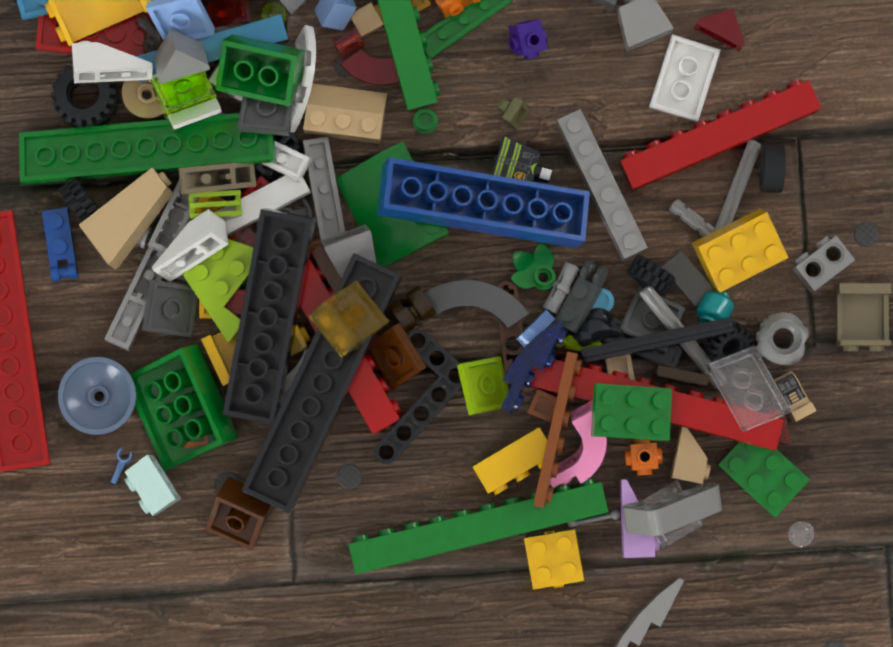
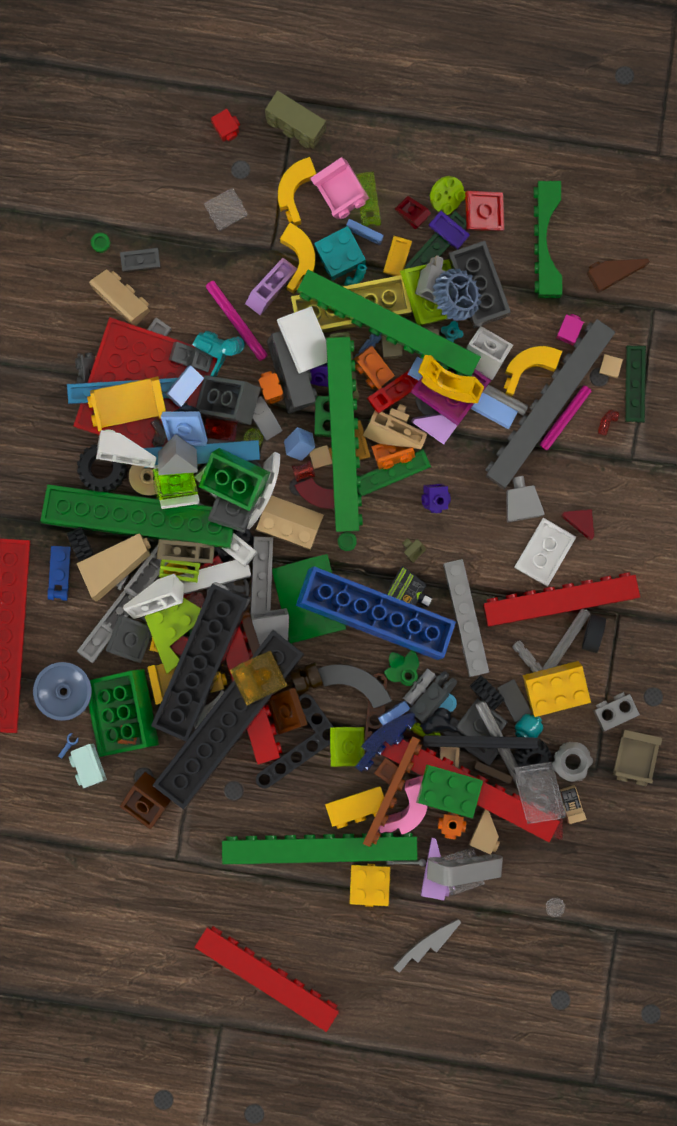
camera: 10 degrees right, 0 degrees up
(764, 475) = (538, 858): green plate -> none

